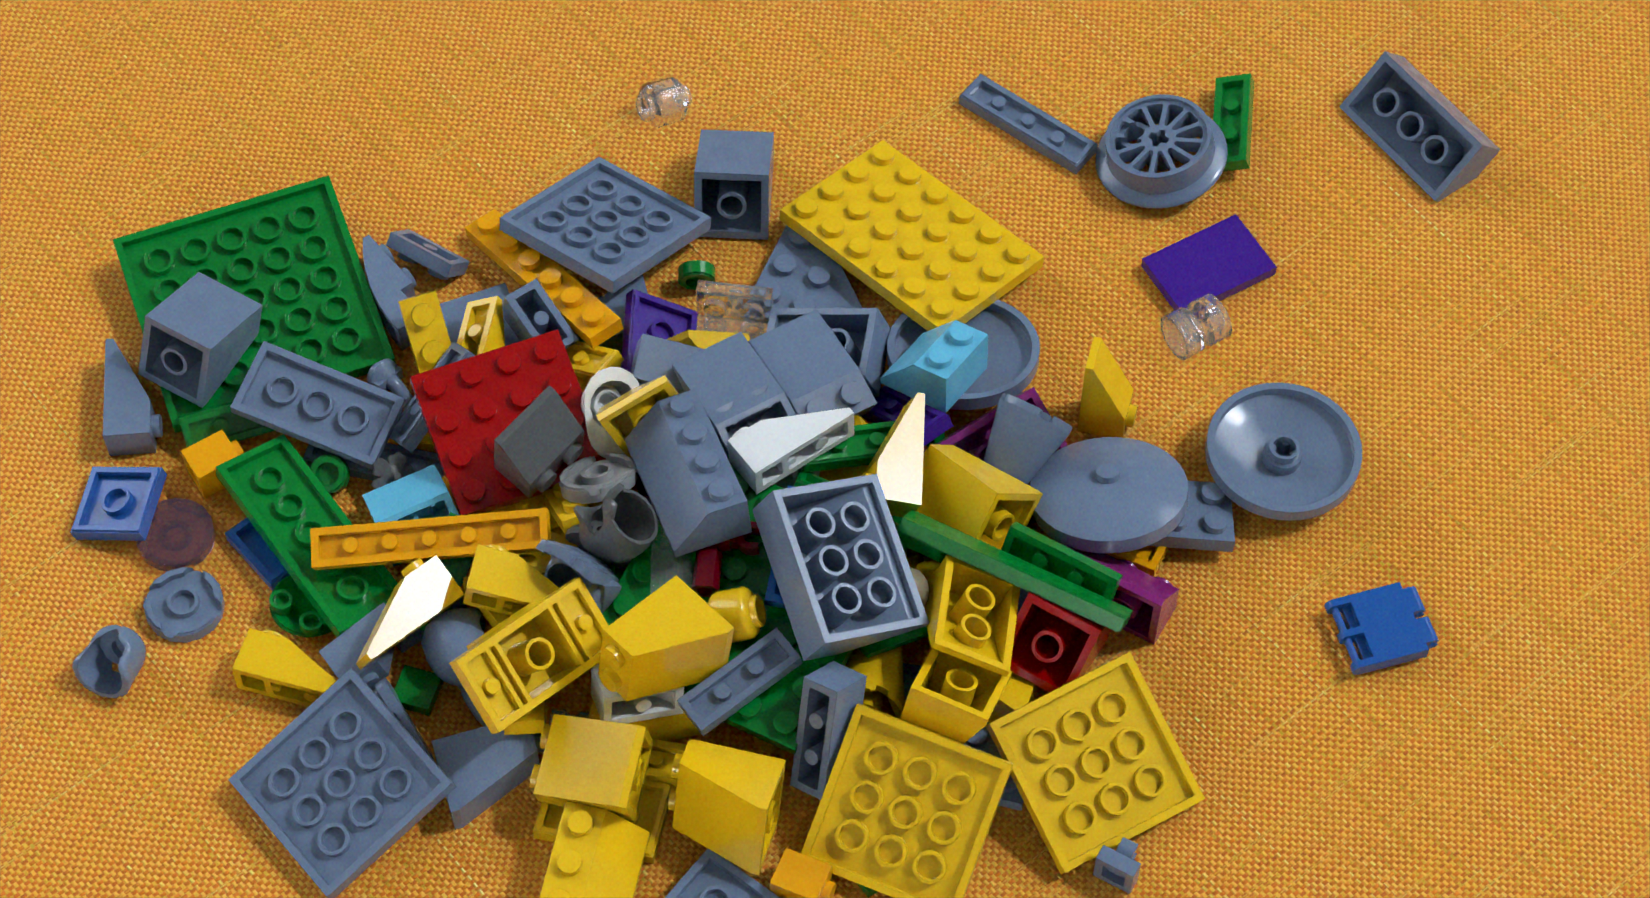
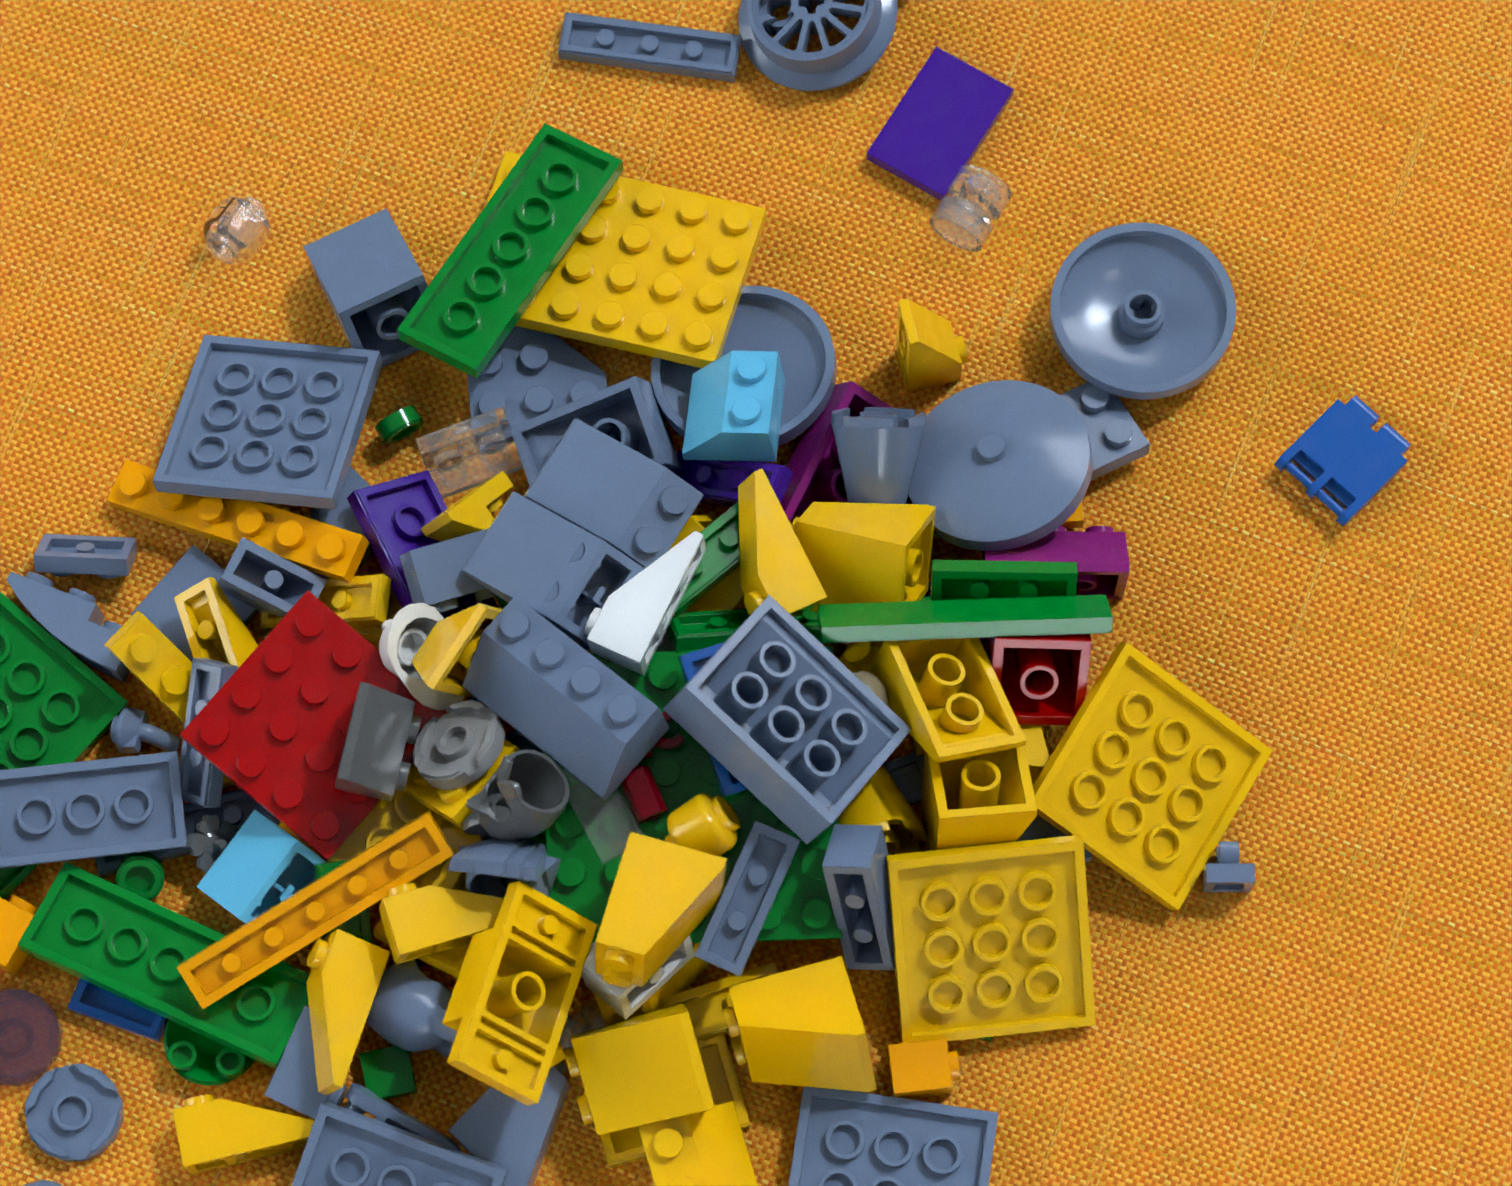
camera: 25 degrees left, 15 degrees up
(841, 192) = (510, 250): none -> green plate

